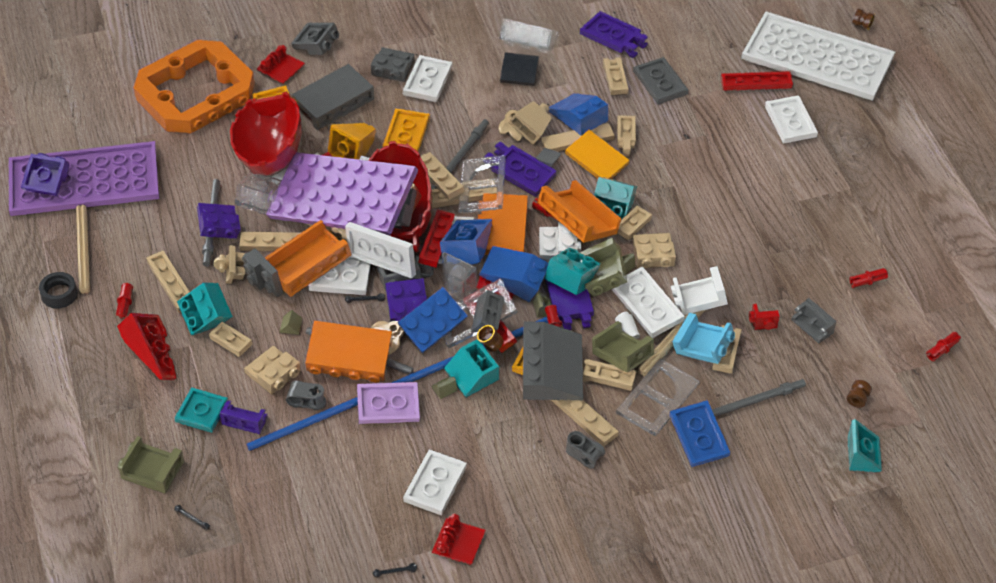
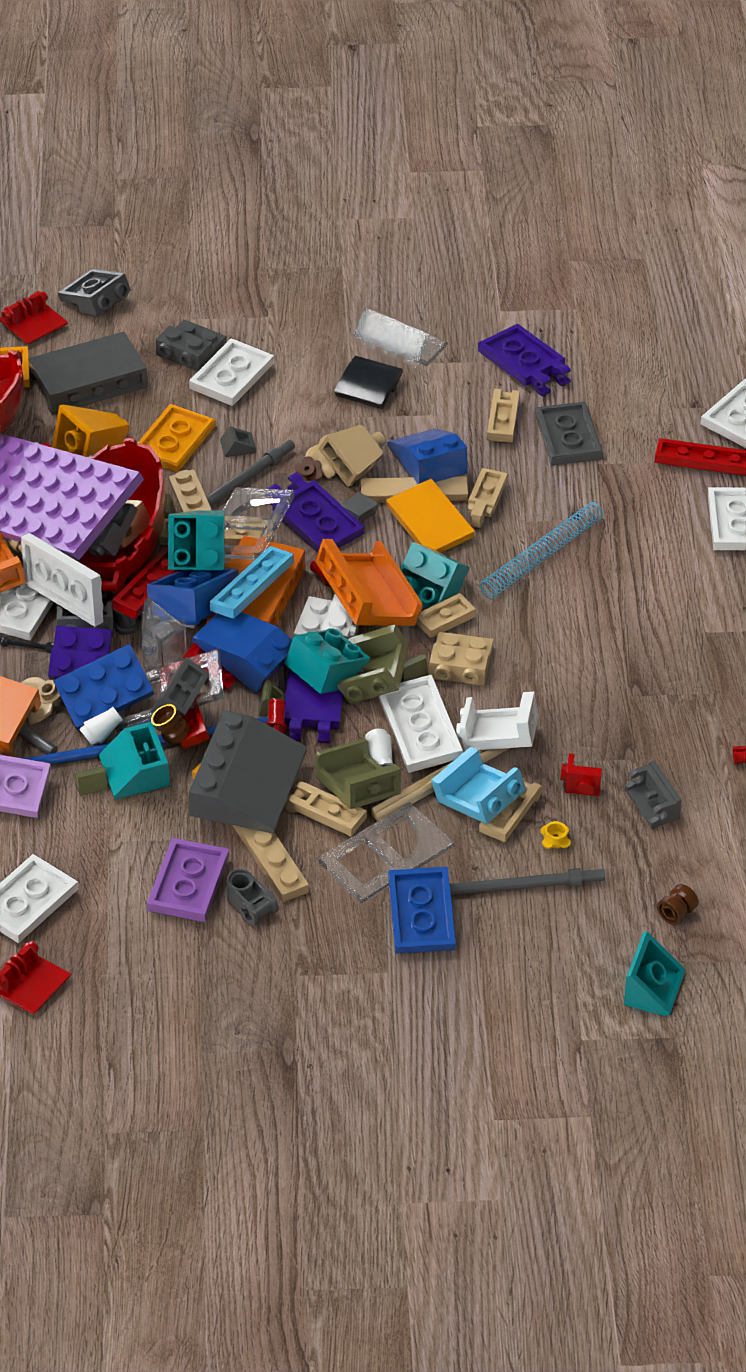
camera: 15 degrees right, 5 degrees down
(439, 348) = (101, 726): none -> white cone
(449, 127) = (237, 442): none -> dark grey slope
(462, 204) = (196, 540): none -> teal slope
(505, 226) = (251, 582): none -> medium azure plate
(509, 139) = (314, 471): none -> reddish brown plant
(538, 445) = (188, 880): none -> medium lavender plate
(669, 166) = (542, 546): none -> medium azure piece
(762, 362) = (555, 835): none -> yellow plate

